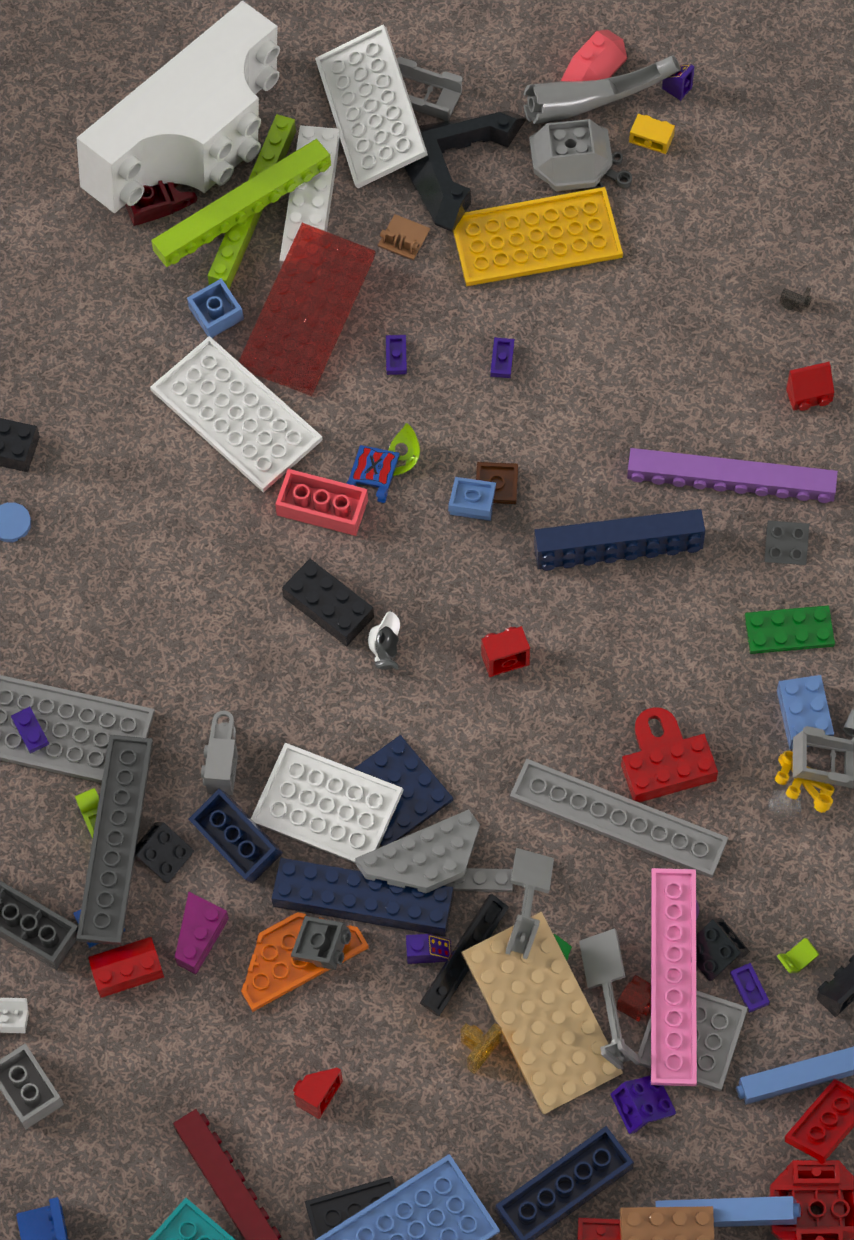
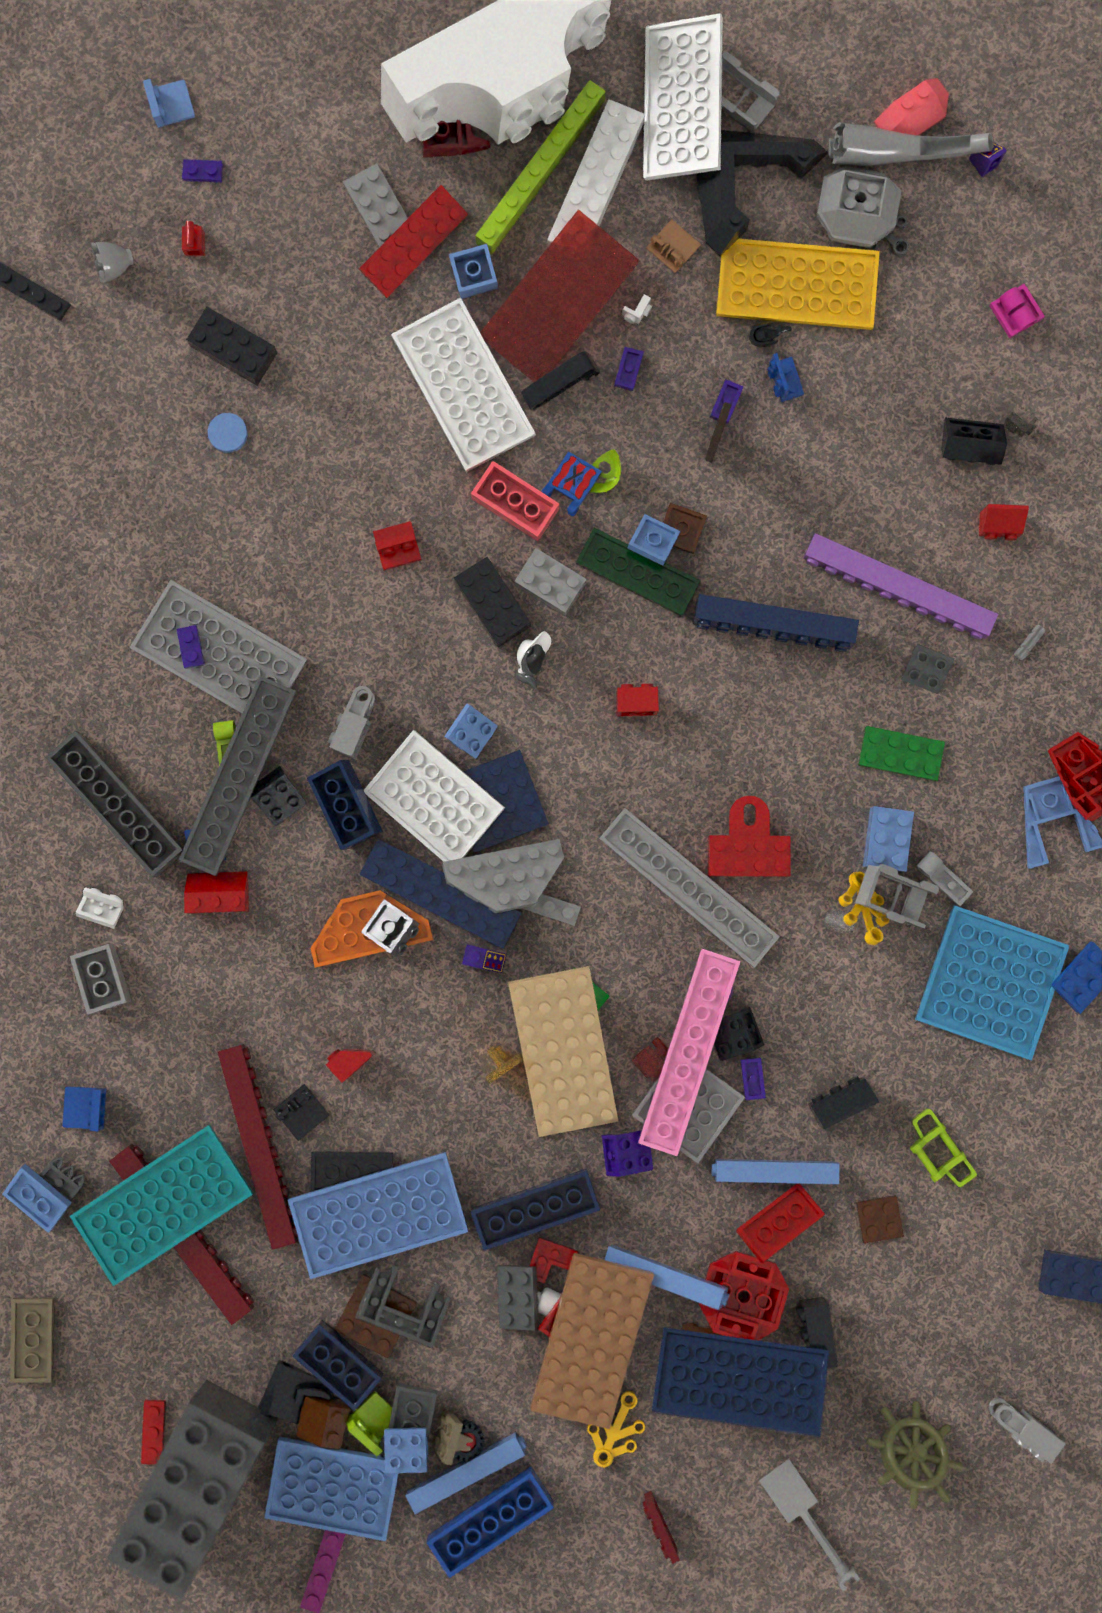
camera: 15 degrees right, 20 degrees up
(103, 280) = (376, 203): none -> light grey plate
(145, 304) = (413, 241): none -> red plate
(198, 932) = (288, 882): magenta wedge -> none
(214, 578) = (397, 545): none -> red bracket
(241, 203) = (528, 170): lime brick -> none
(280, 1165) = (301, 1112): none -> black hinge
(331, 381) = (560, 379): none -> black beam
(344, 730) = (471, 731): none -> medium blue plate
(381, 567) = (550, 582): none -> light grey brick
(387, 306) = (642, 309): none -> white bracket
(456, 966) = (517, 969): black plate -> none
(466, 534) = (636, 573): none -> dark green plate
(503, 379) = (718, 432): none -> dark brown tile
(518, 290) = (762, 334): none -> black piece
(533, 873) = (595, 922): light grey piece -> none
(552, 320) = (785, 378): none -> blue bracket
(602, 966) = (631, 1024): light grey piece -> none
(652, 133) = (942, 206): yellow brick -> none
(755, 202) = (1016, 310): none -> dark pink plate
(756, 327) = (973, 441): none -> black slope
(799, 956) = (804, 1064): lime bracket -> none

